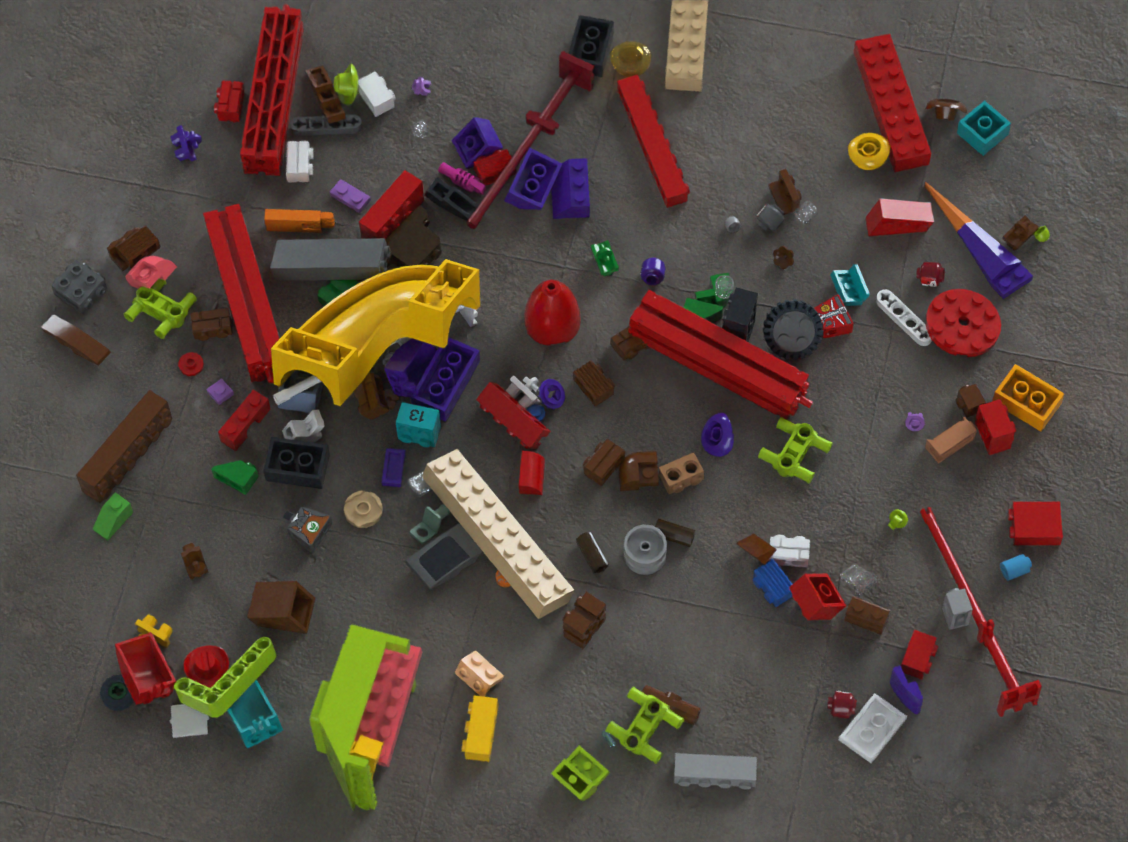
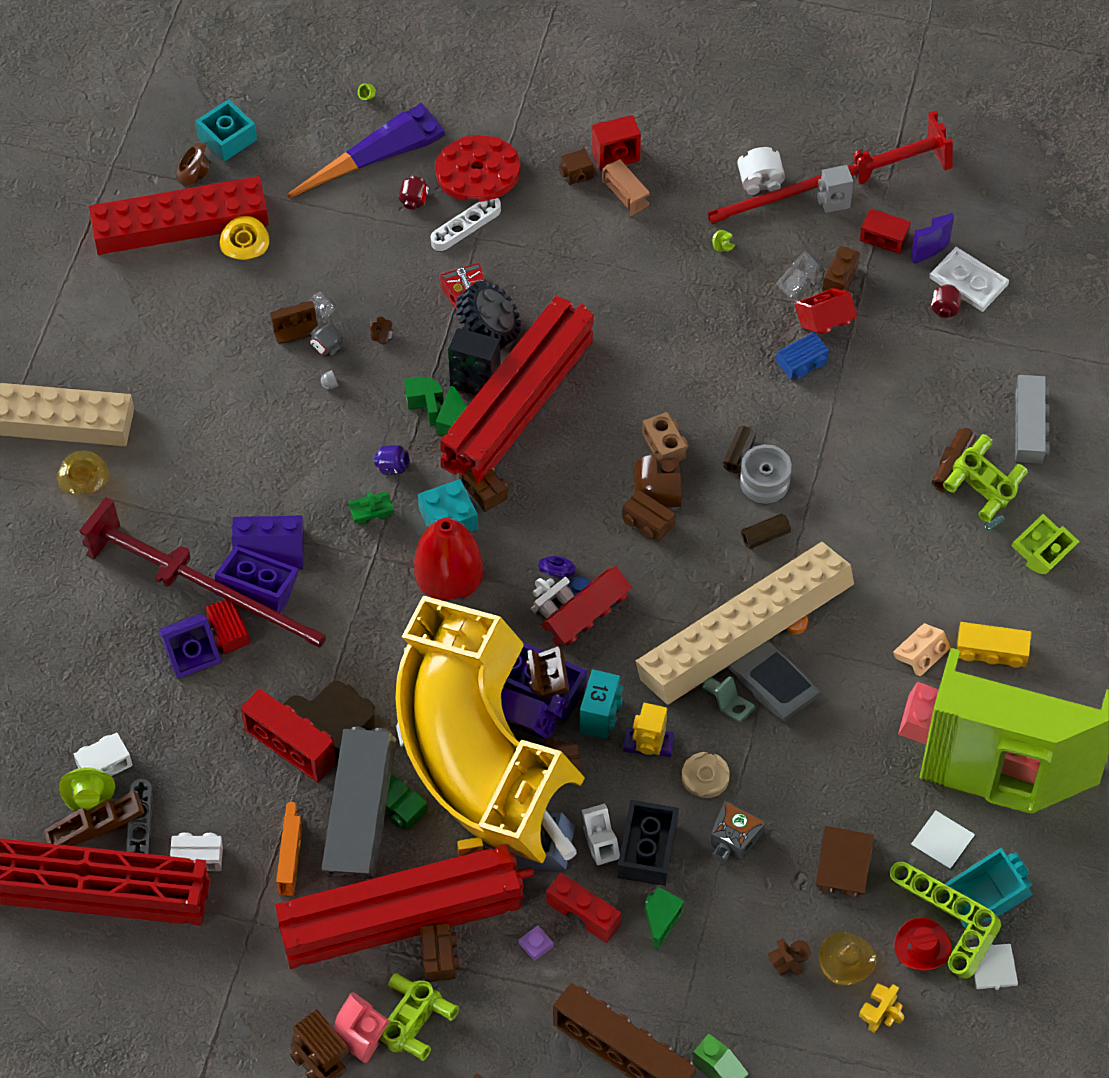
camera: 90 degrees left, 5 degrees down
(111, 700) = (968, 1037): black bush -> none
(144, 669) = (943, 1006): red piece -> none
(188, 141) = (142, 998): dark purple hips -> none
(191, 364) = (492, 981): red piece -> none
(198, 609) = (846, 958): none -> clear yellow hat
(230, 101) = (90, 940): red brick -> none
(302, 686) = (942, 839): none -> white sticker
(350, 196) = (252, 794): medium lavender plate -> none
(390, 458) = (650, 729): none -> yellow brick
(419, 86) = (93, 711): medium lavender plate -> none
(419, 485) = (677, 709): clear plate -> none
(420, 129) = (159, 711): clear plate -> none
(436, 377) = (547, 673): none -> reddish brown bracket
(451, 199) = (273, 670): black slope -> none
(462, 178) = (239, 663): dark pink hinge -> none
(531, 473) = (661, 594): red brick -> none
(584, 619) = (858, 533): reddish brown brick -> none
(592, 42) = (57, 513): black brick -> none
(593, 382) = (542, 524): reddish brown brick -> none
(603, 313) = (448, 502): none -> teal brick
(652, 141) = (205, 456): red brick -> none
(717, 435) = (616, 399): dark purple hat -> none
(727, 283) = (428, 378): clear wheel -> none
(757, 548) = (763, 365): reddish brown slope -> none
(790, 550) = (763, 340): white brick -> none
(795, 450) = (635, 329): lime piece -> none
(850, 286) = (423, 266): teal bracket -> none
(898, 217) = (339, 217): red wedge -> none
(915, 421) = (601, 219): medium lavender plate -> none
(973, 547) = (761, 170): none -> white brick
(1015, 567) = (780, 141): dark azure brick -> none
(1020, 233) = (368, 108): reddish brown hips -> none
(1029, 397) = (576, 111): light orange brick -> none
(1035, 523) = (728, 120): red brick -> none

